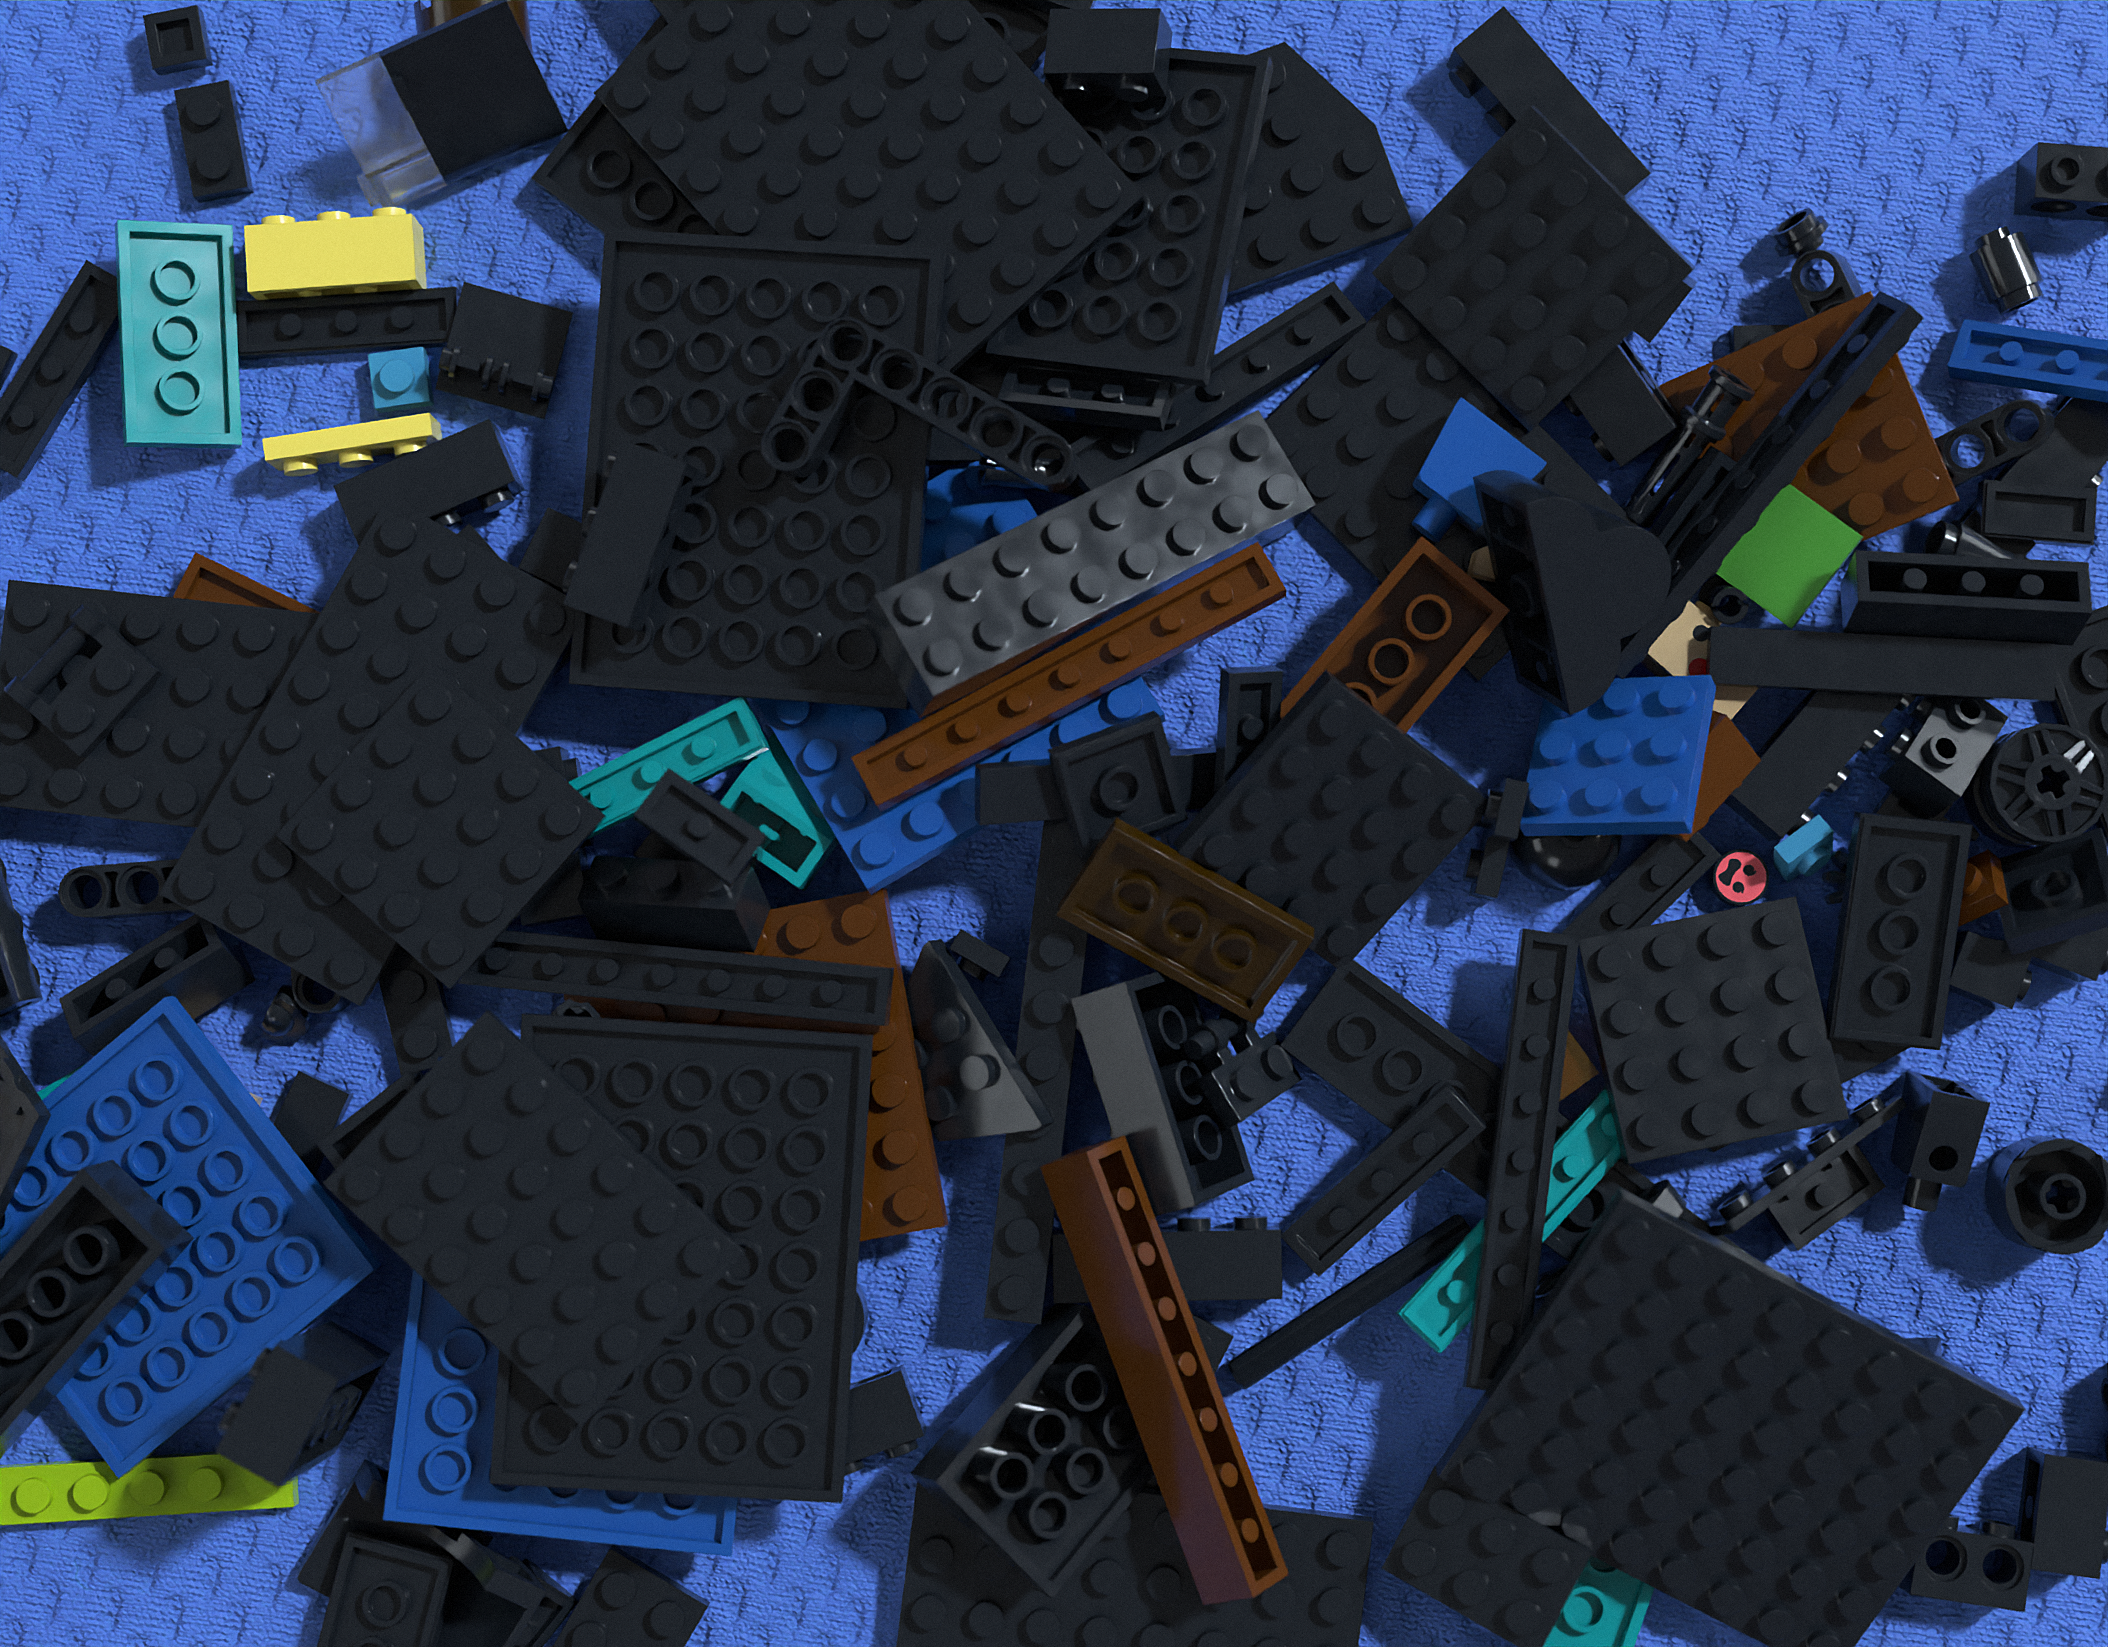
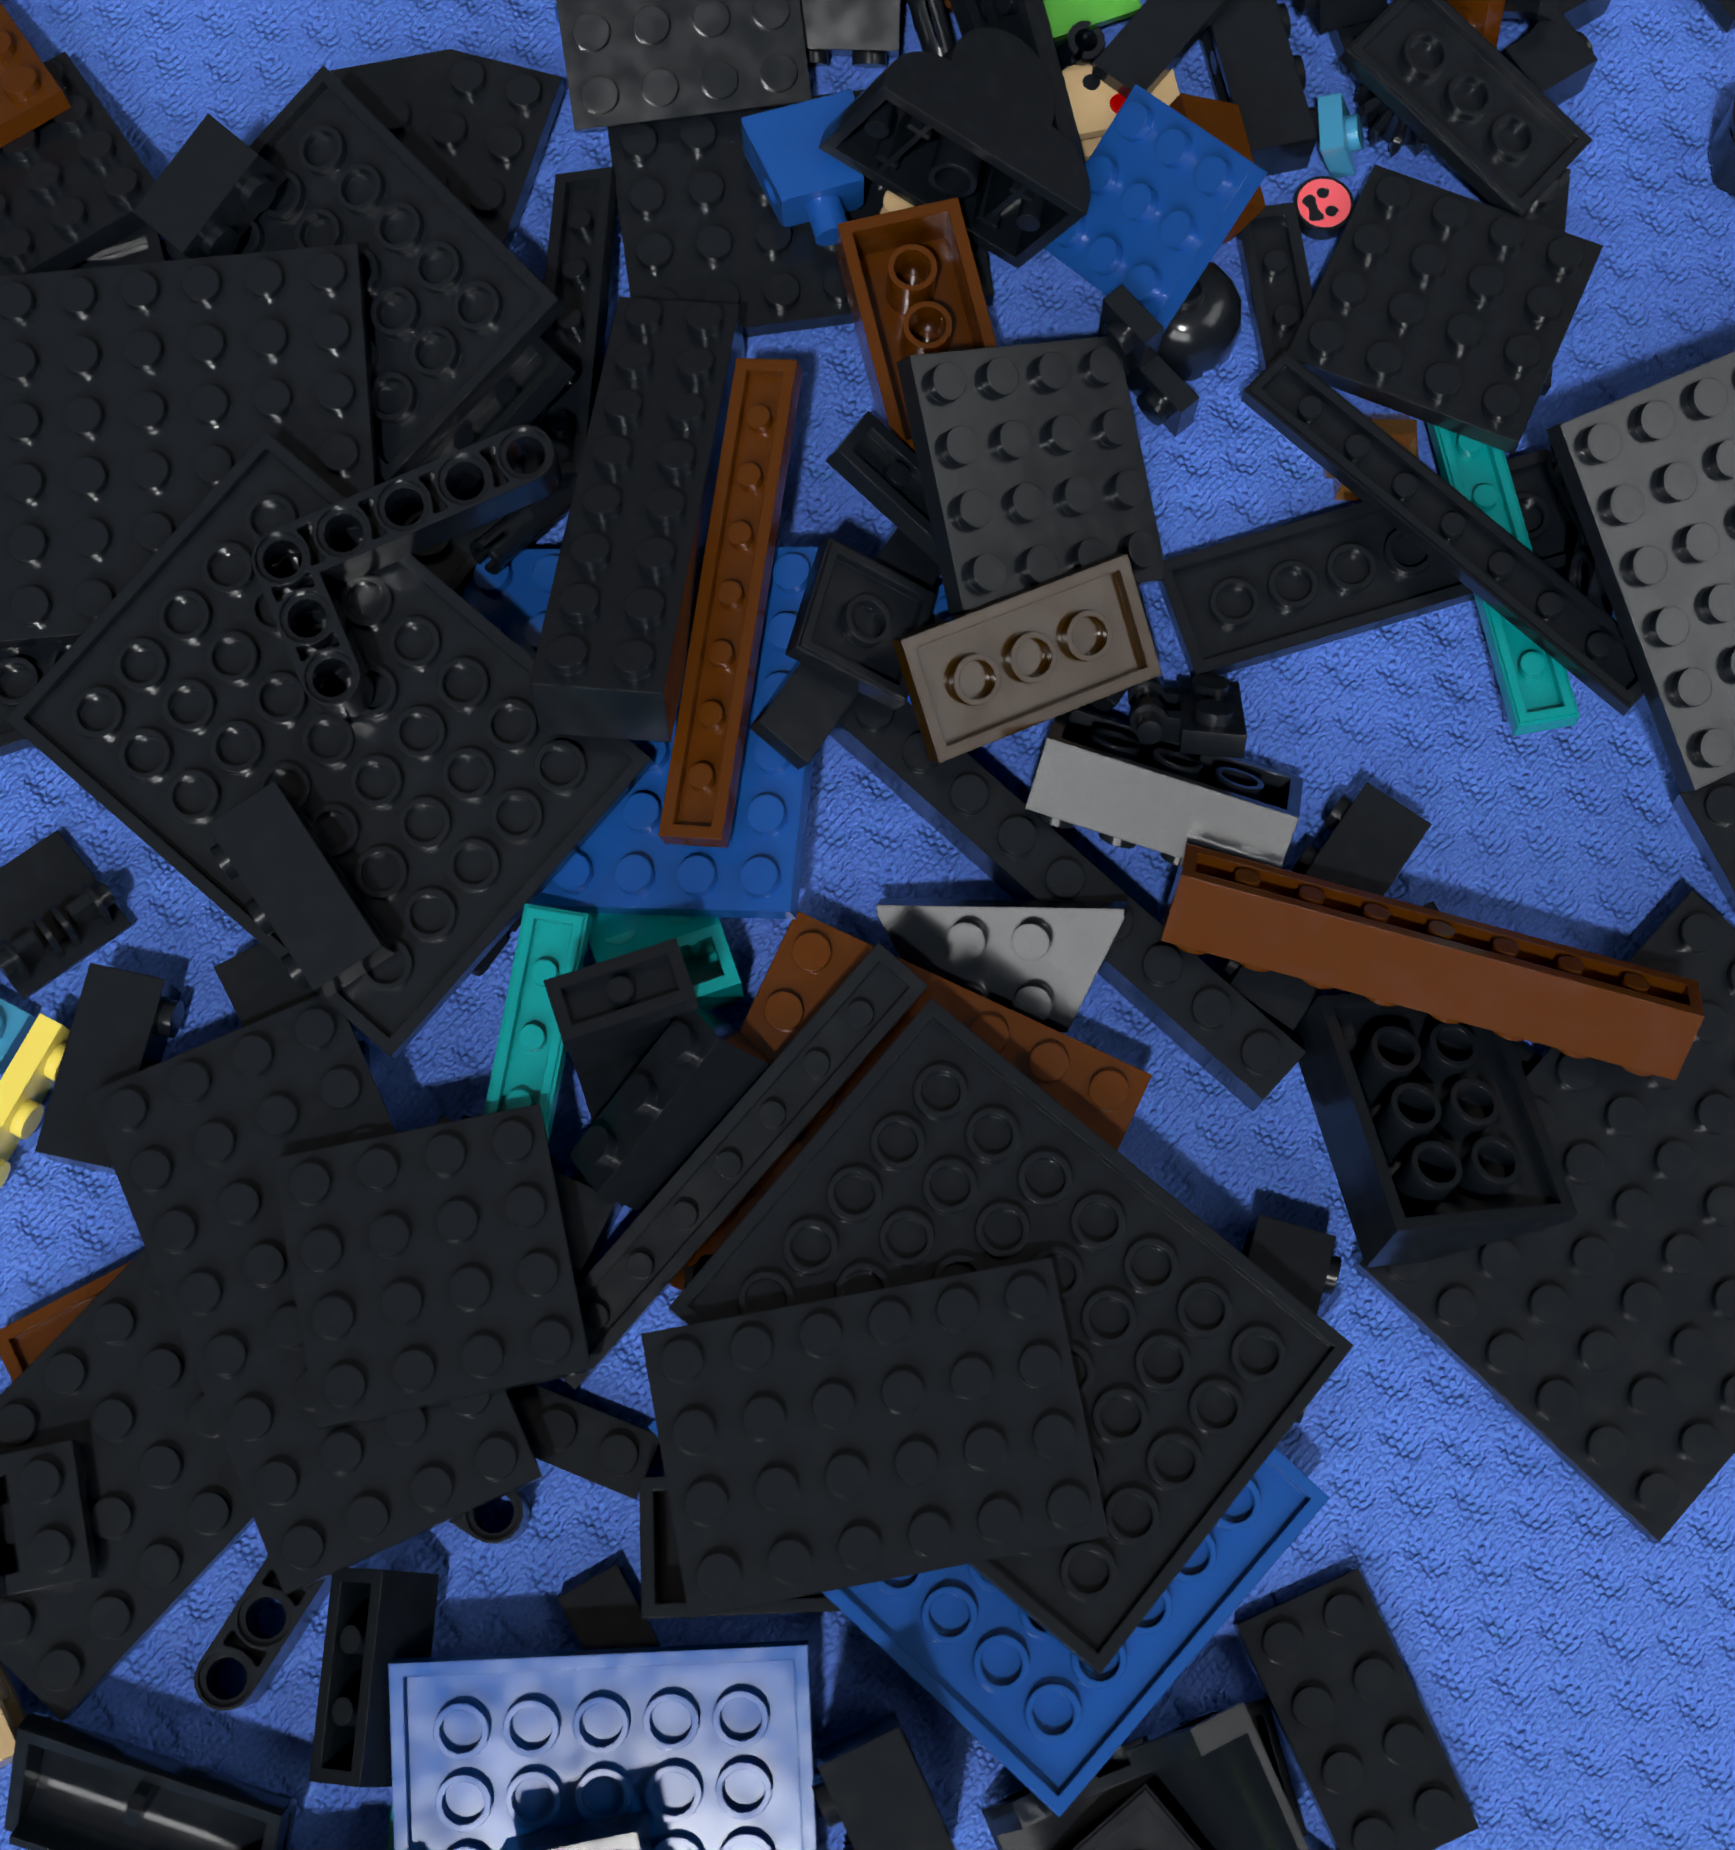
camera: 55 degrees left, 10 degrees down
(285, 1018) = (497, 1572): black piece -> none
(978, 957) = (922, 877): black plate -> none
(1348, 1302) = (1471, 776): black axle -> none
(1383, 1179) = (1382, 665): black plate -> none
(1820, 1187) = (1643, 311): black bracket -> none
(1936, 1136) = (1665, 192): black torso -> none

